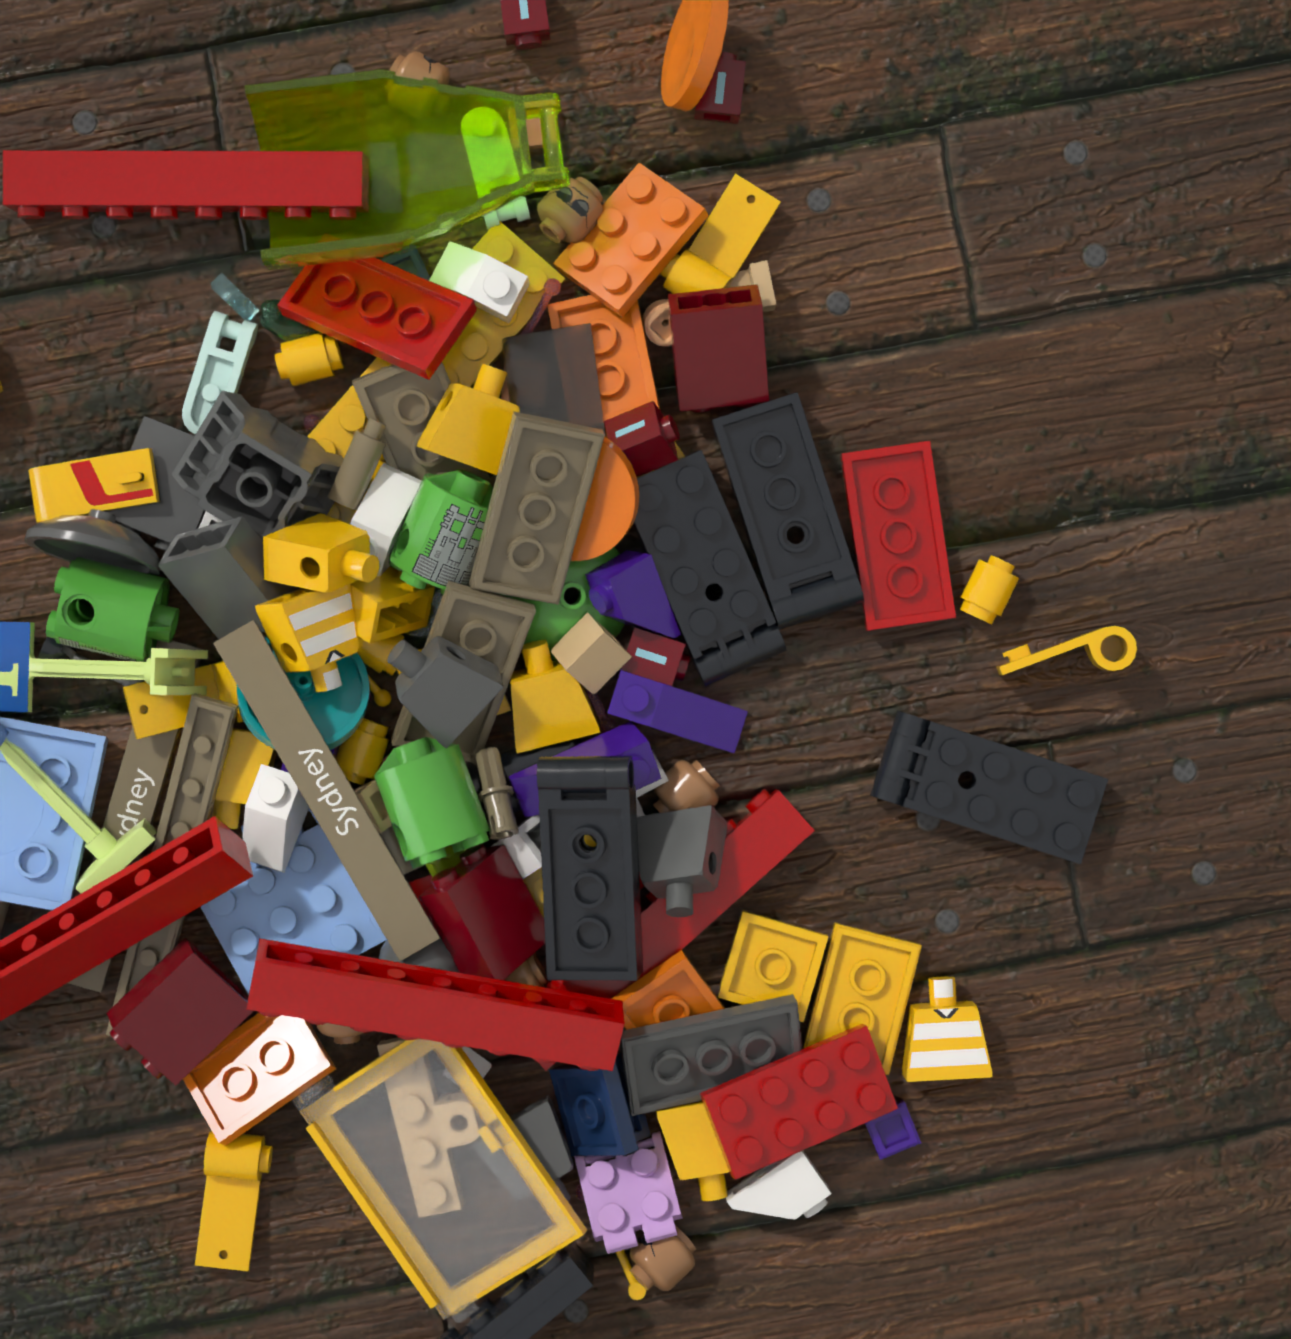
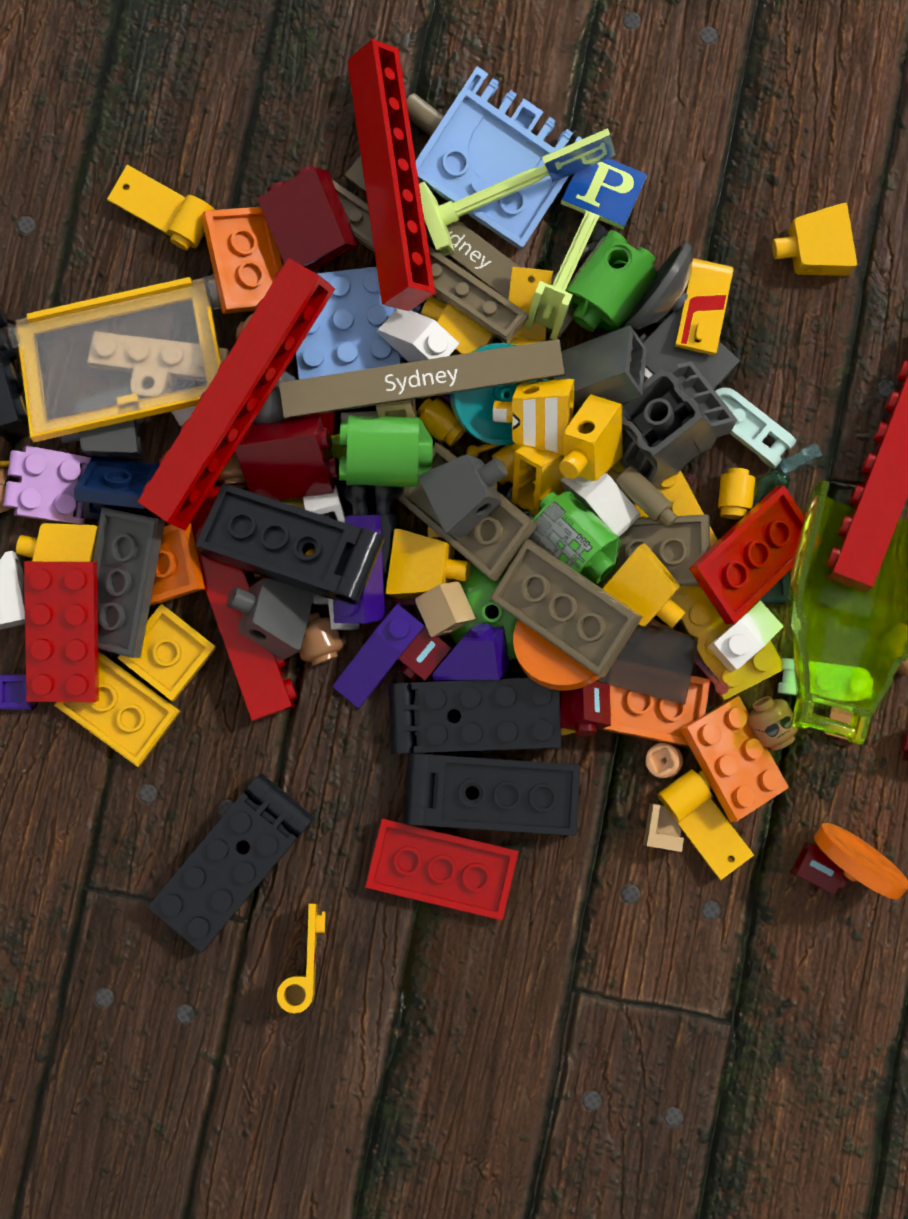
camera: 110 degrees right, 5 degrees down
(495, 794) = (370, 500): dark tan axle -> none
(719, 348) = (630, 790): dark red brick -> none
(944, 1037) = (63, 756): torso -> none
(989, 589) = (376, 920): yellow brick -> none

